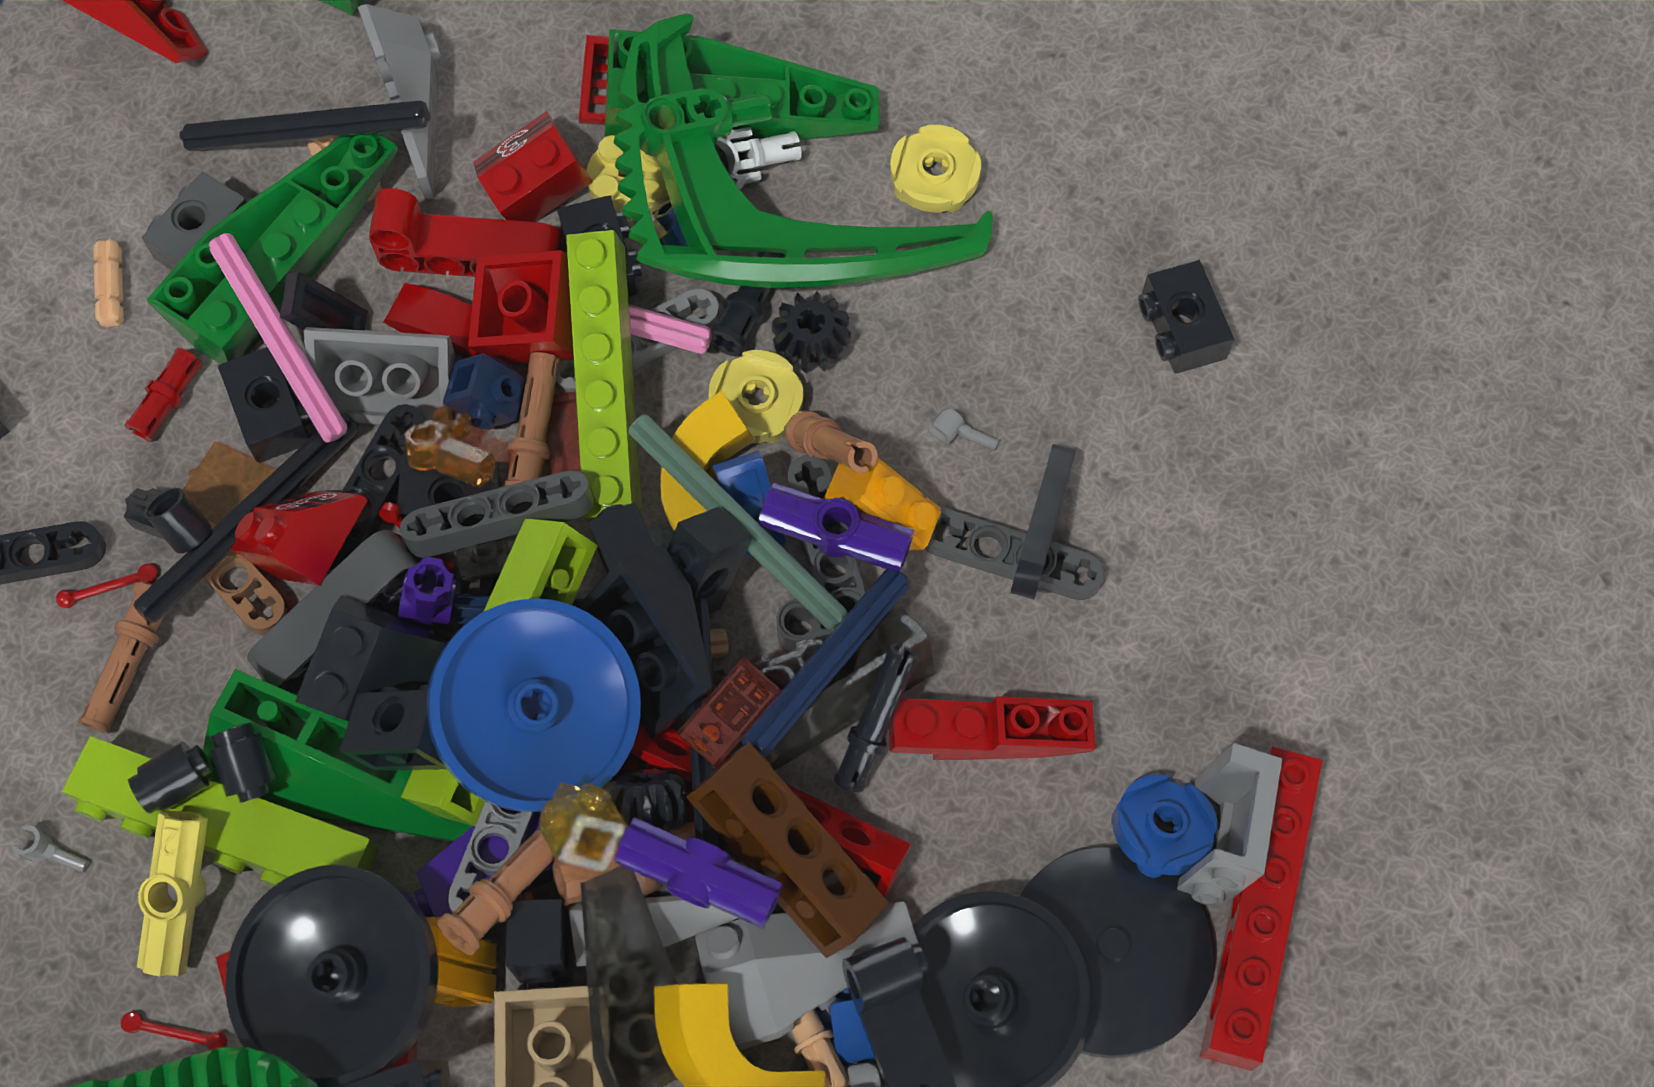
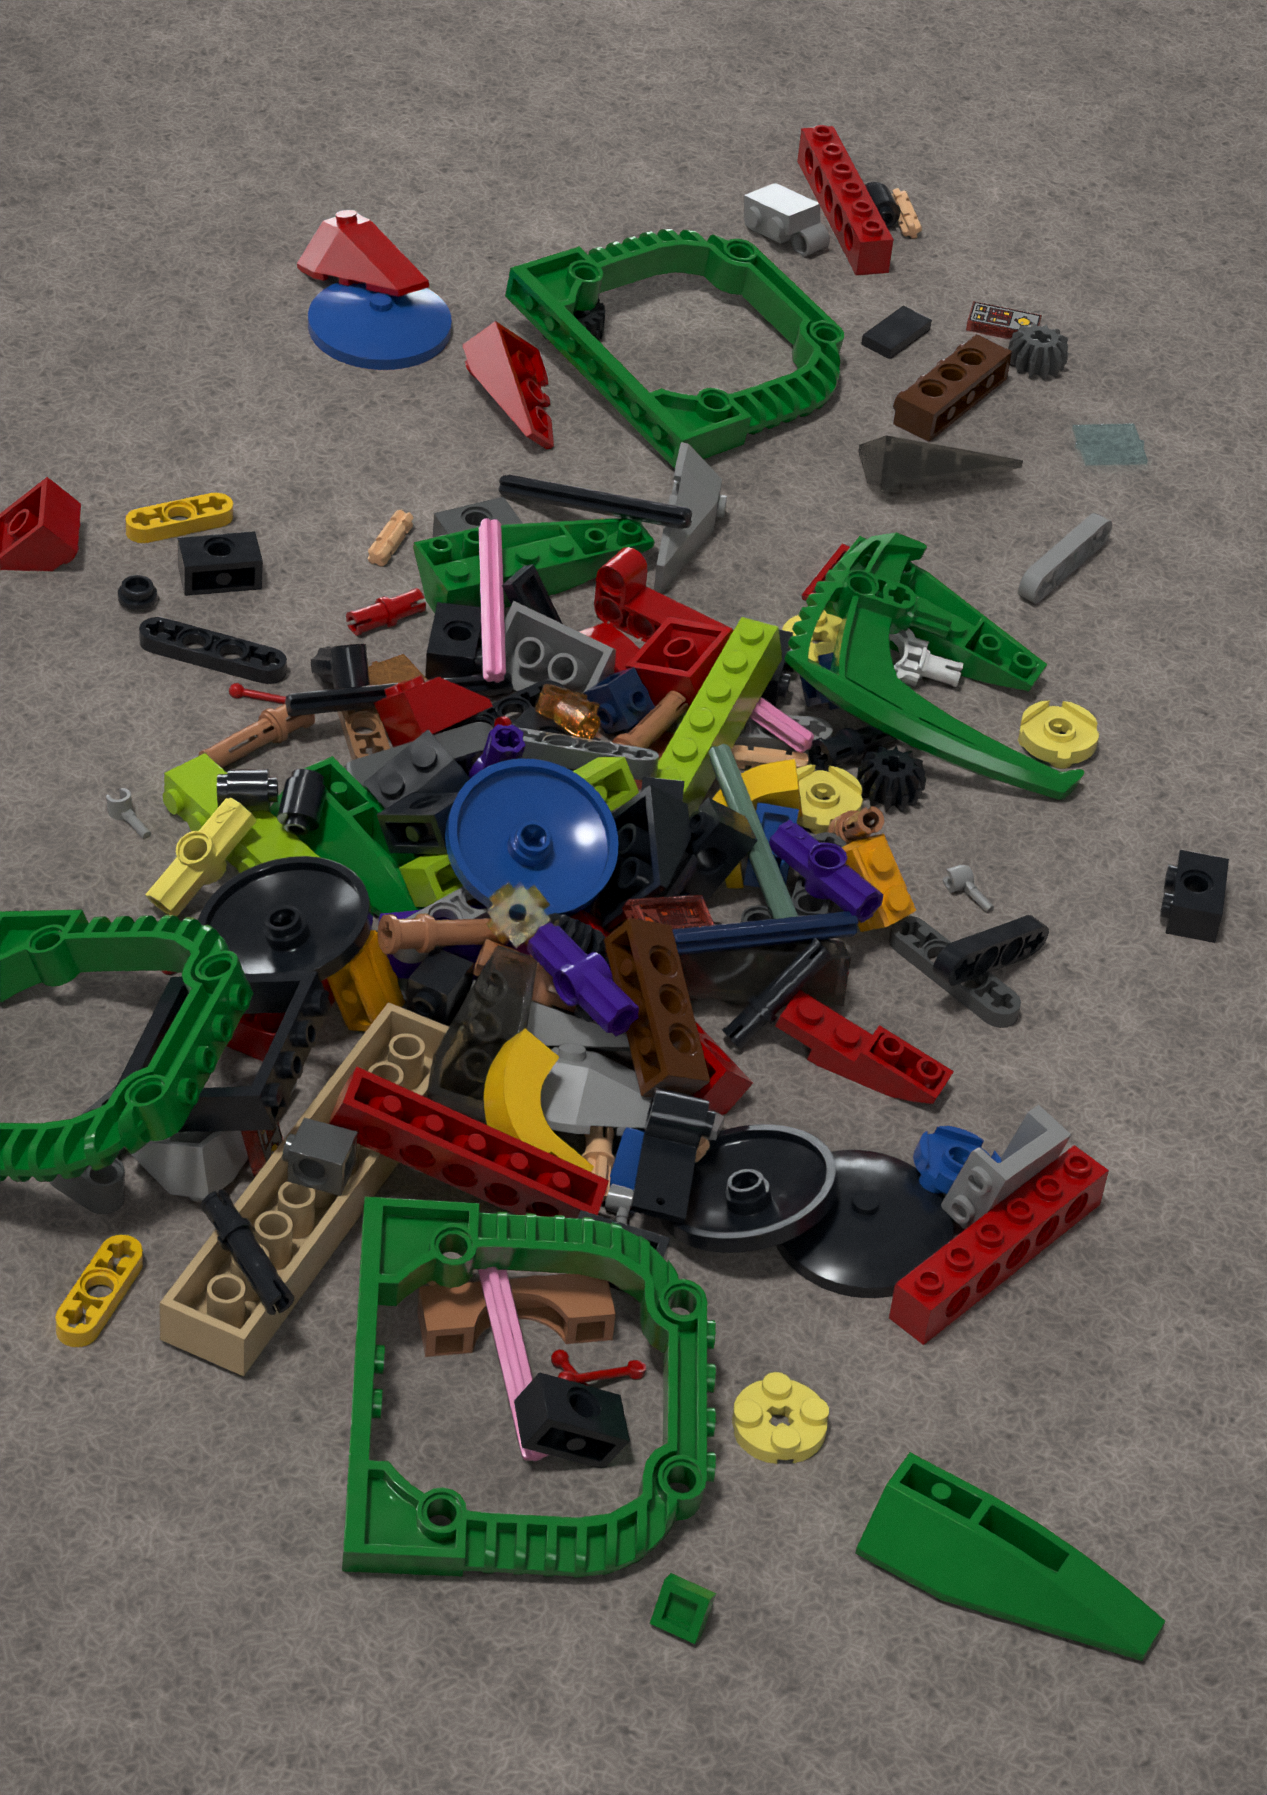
camera: 25 degrees right, 25 degrees down
(531, 171) = (748, 595): red slope -> none
(673, 373) = (765, 755): none -> light nougat axle

